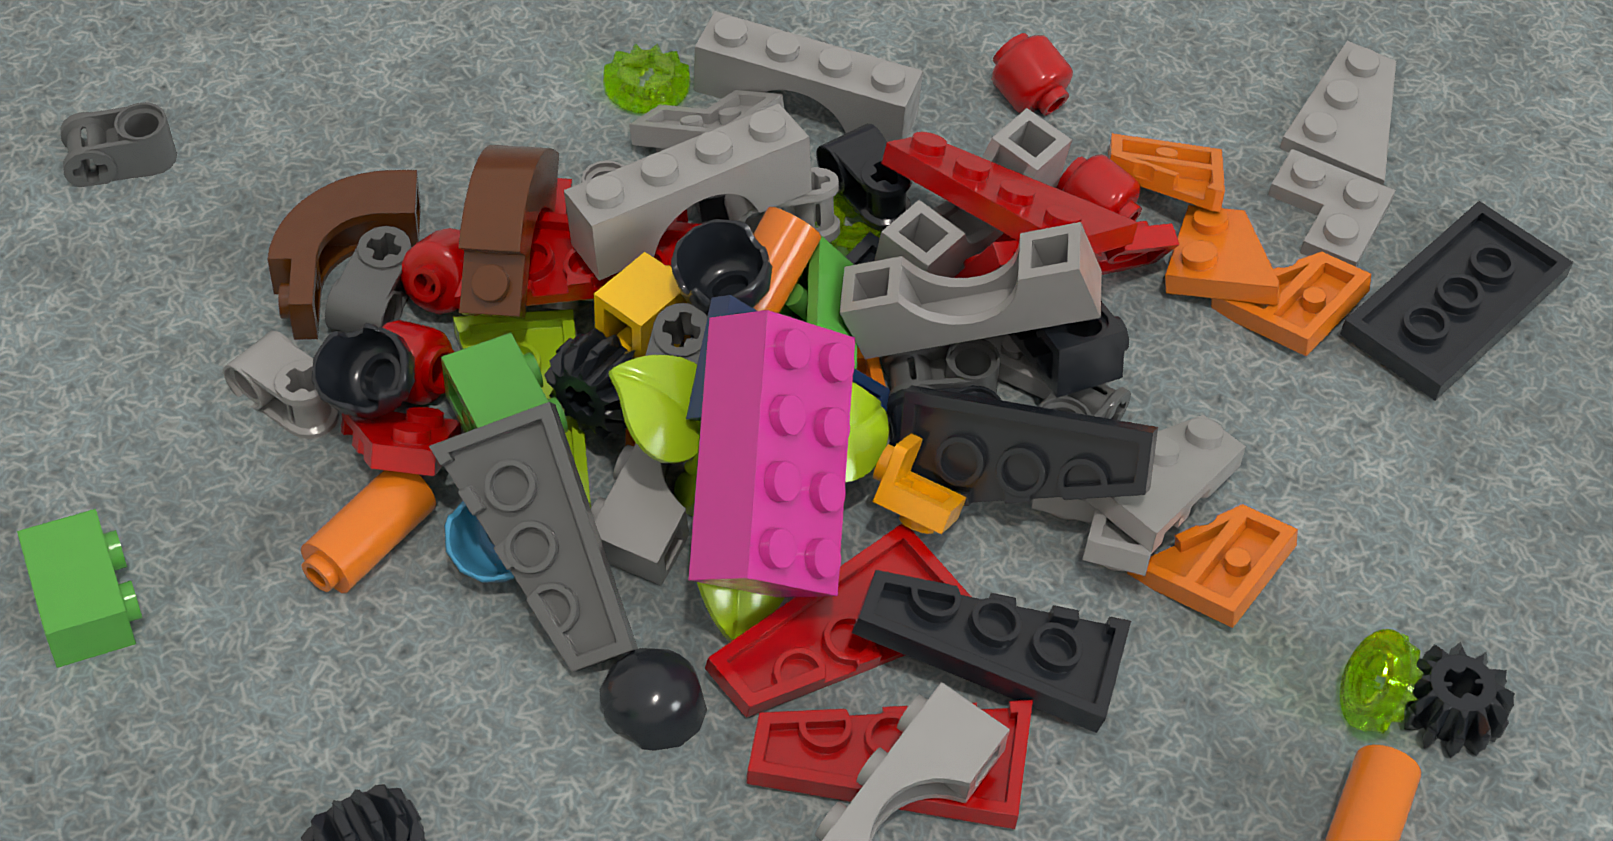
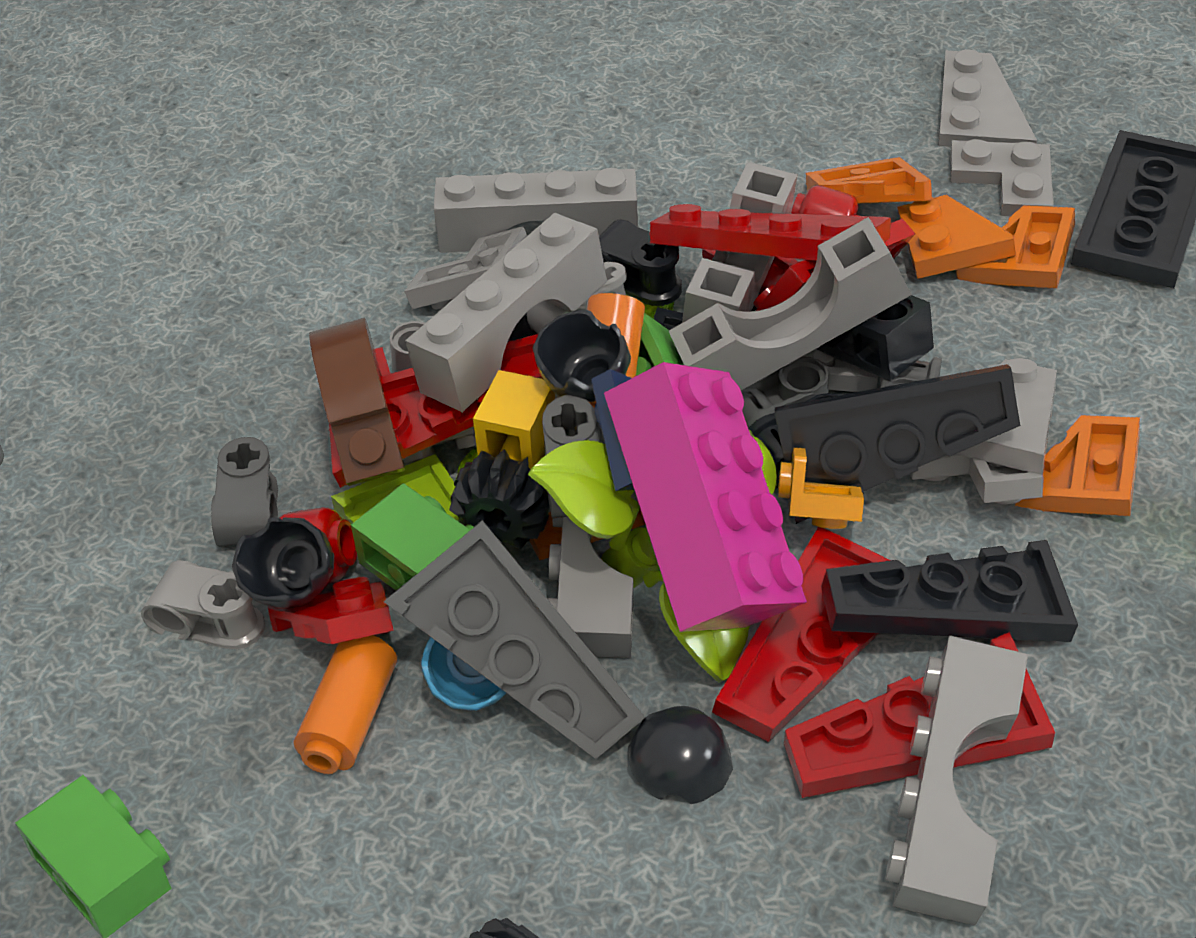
camera: 15 degrees left, 5 degrees down
(327, 231) = (183, 459): reddish brown arch -> none
(434, 271) = (301, 460): red head -> none
(666, 87) = (379, 265): clear neon green gear -> none
(1032, 74) = (716, 149): red head -> none

